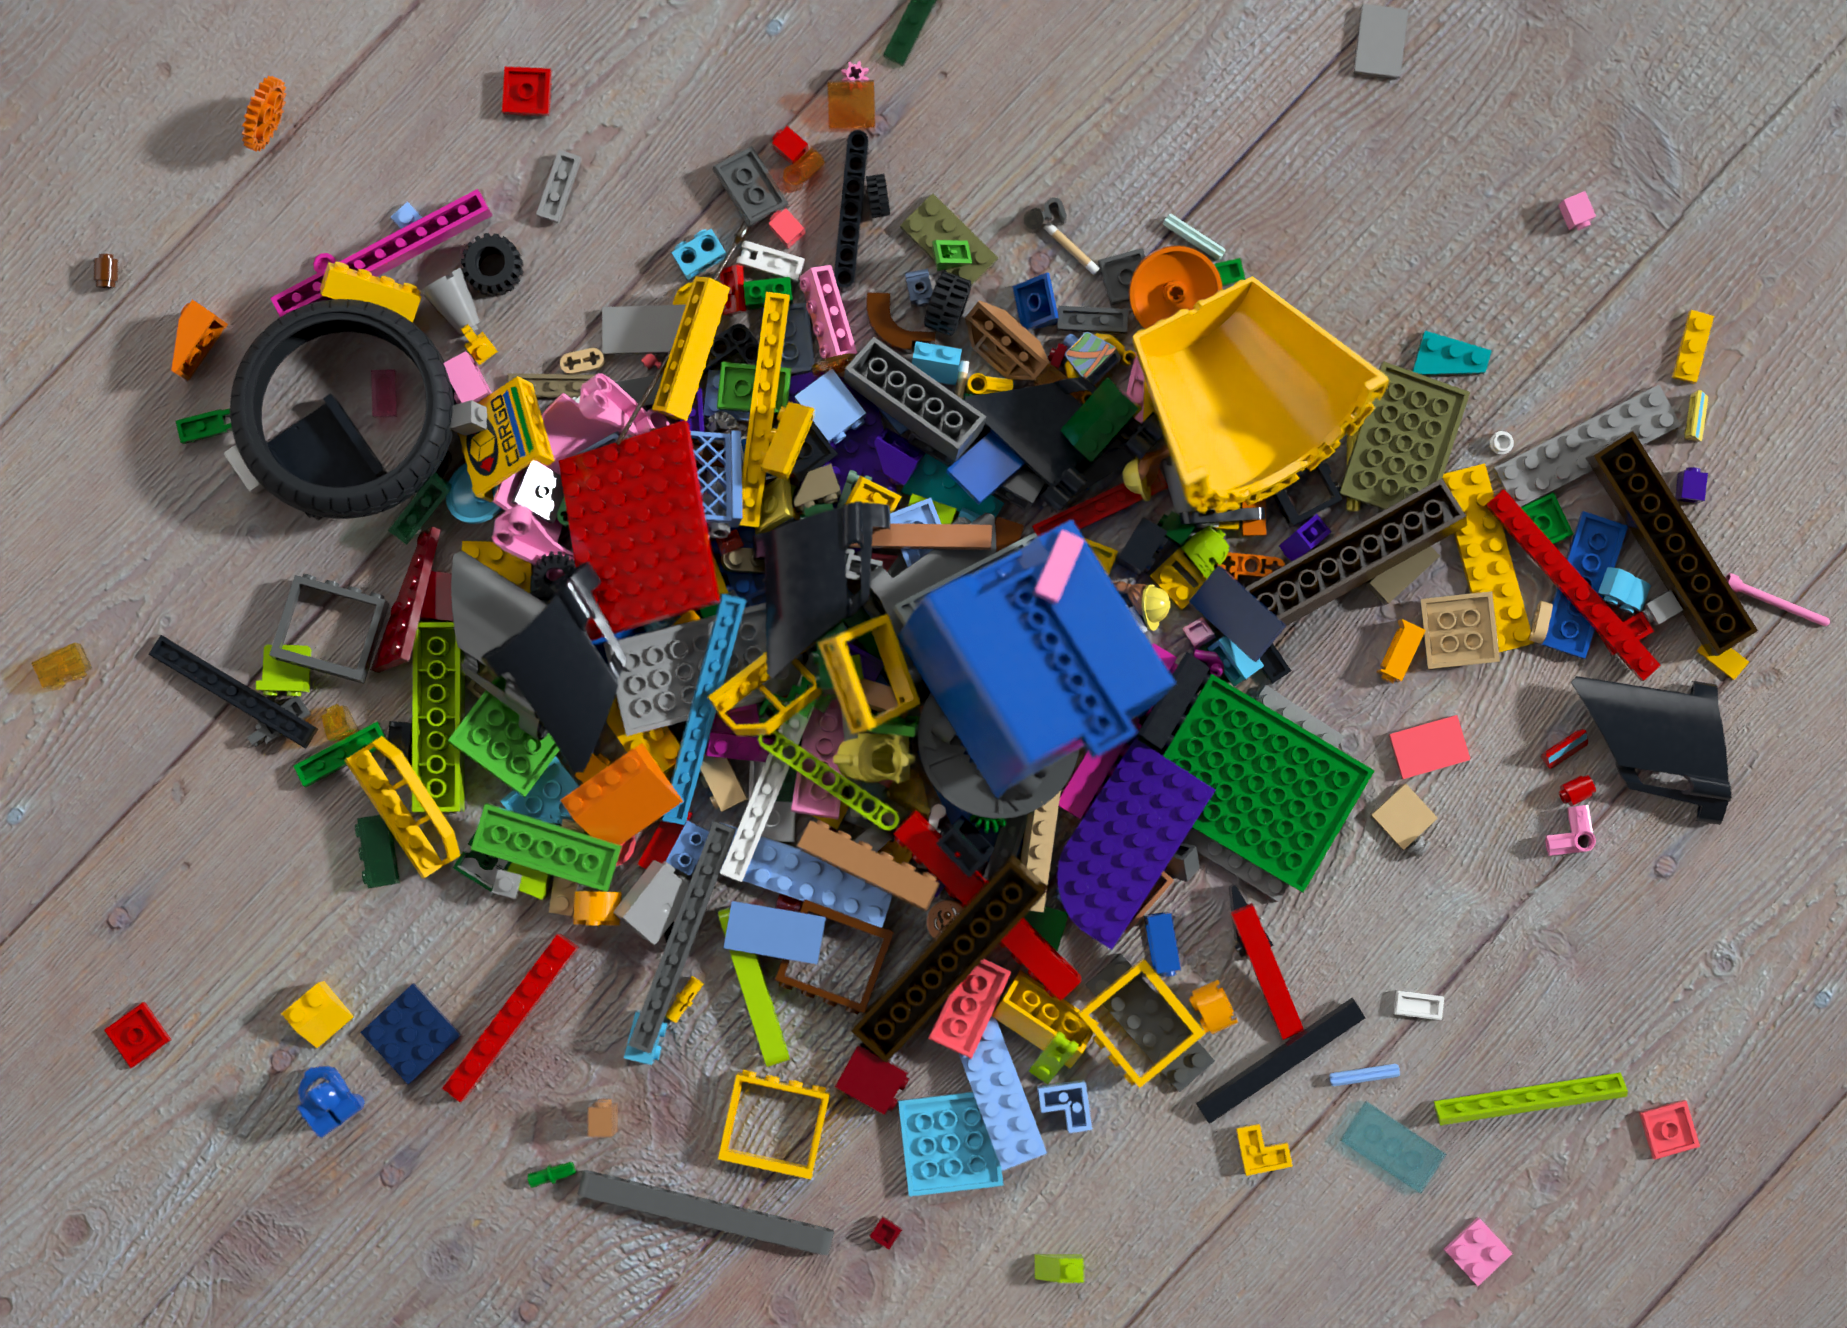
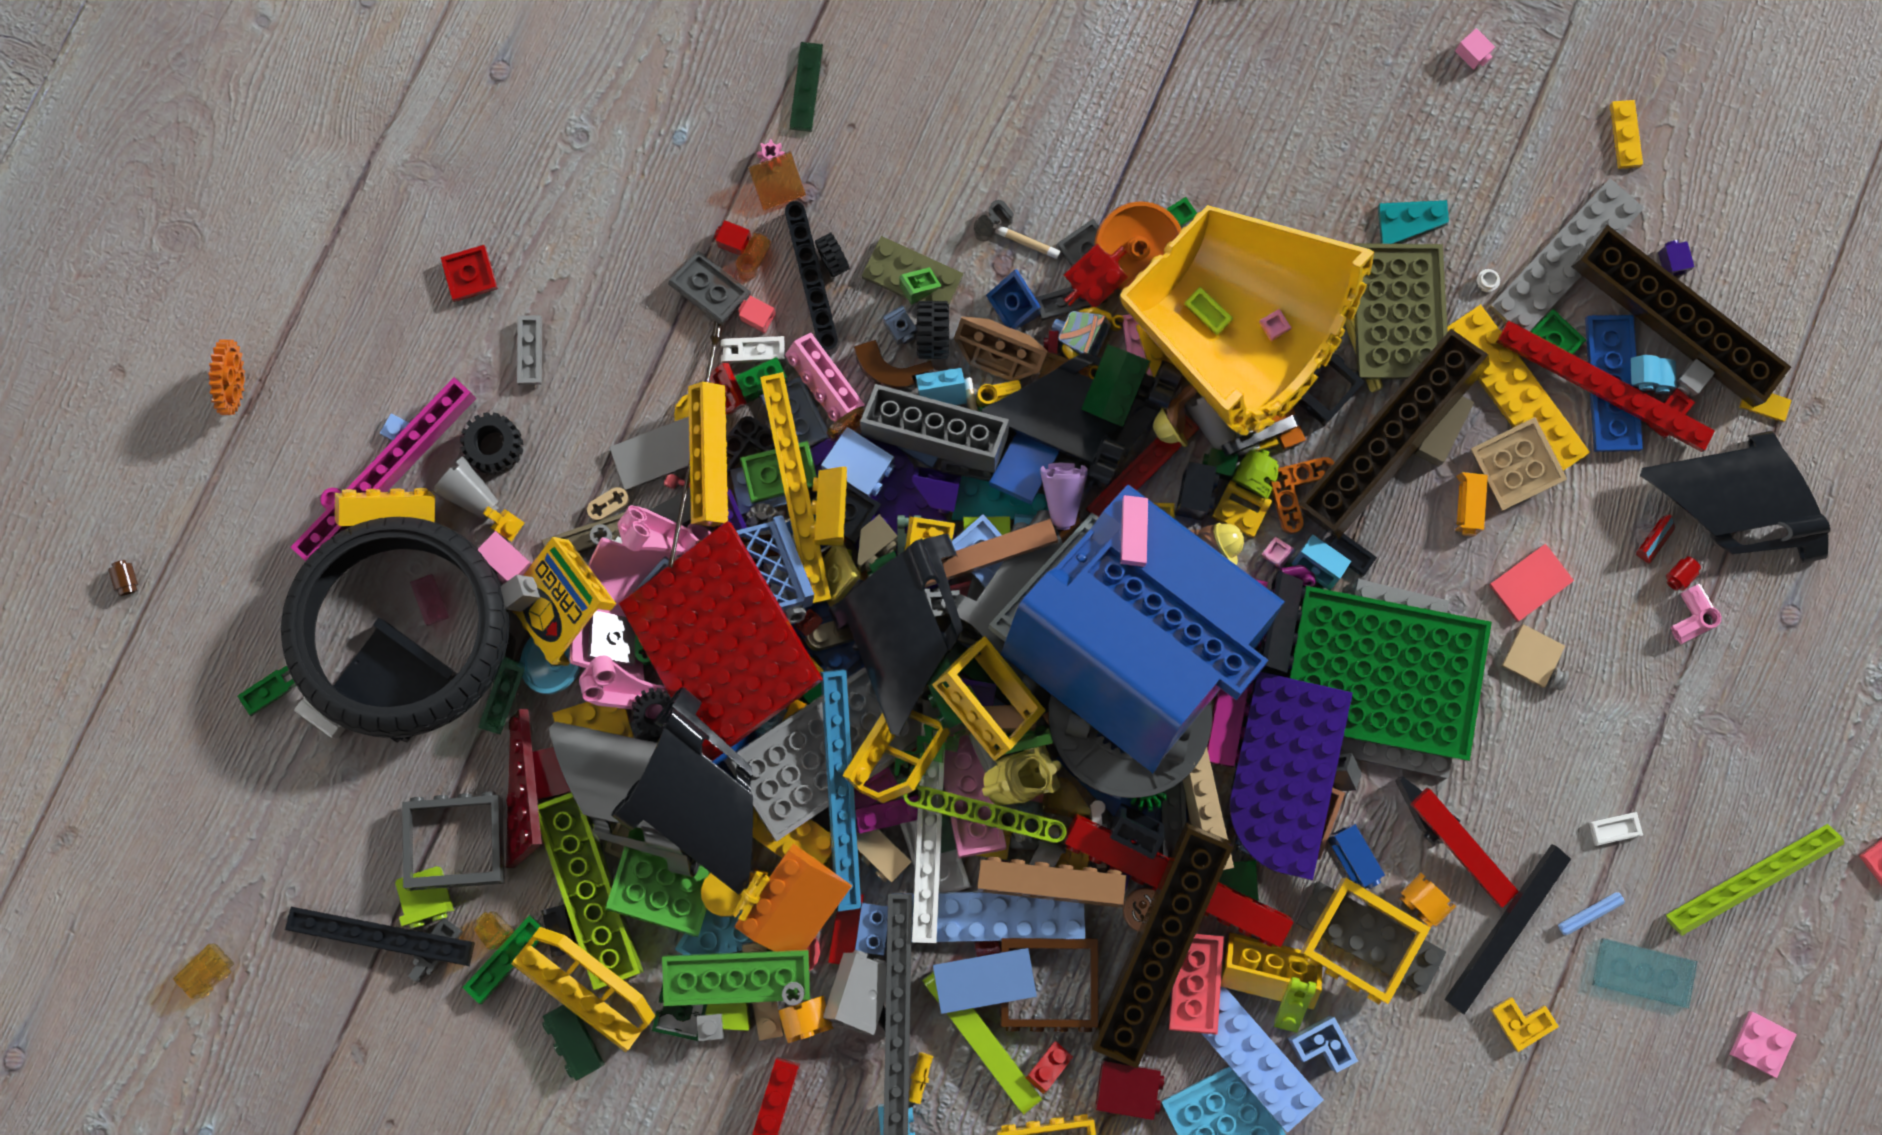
camera: 20 degrees left, 5 degrees down
(195, 337) = (230, 609): orange slope -> none
(557, 770) = (718, 897): none -> yellow tile
(561, 382) = (596, 529): none -> light grey bush
(584, 777) = (750, 896): none -> yellow pin
(591, 888) = (794, 1001): none -> light grey bush
(703, 260) = (688, 369): medium azure brick -> none
(806, 1032) = (1049, 1067): none -> red plate
(1013, 503) = (1063, 492): none -> lavender cone
(1122, 305) = (1095, 275): none -> red plate
(1194, 237) = (1136, 192): light aqua axle -> none
(1218, 378) = (1208, 311): none -> lime tile
(1237, 613) = (1309, 520): dark blue tile -> none
(1276, 414) = (1275, 325): none -> bright pink tile
(1305, 538) = (1343, 431): dark purple slope -> none
(1541, 622) = (1589, 430): tan beam -> none
(1696, 416) = (1654, 195): light yellow slope -> none
(1737, 585) = (1795, 336): bright pink piece -> none

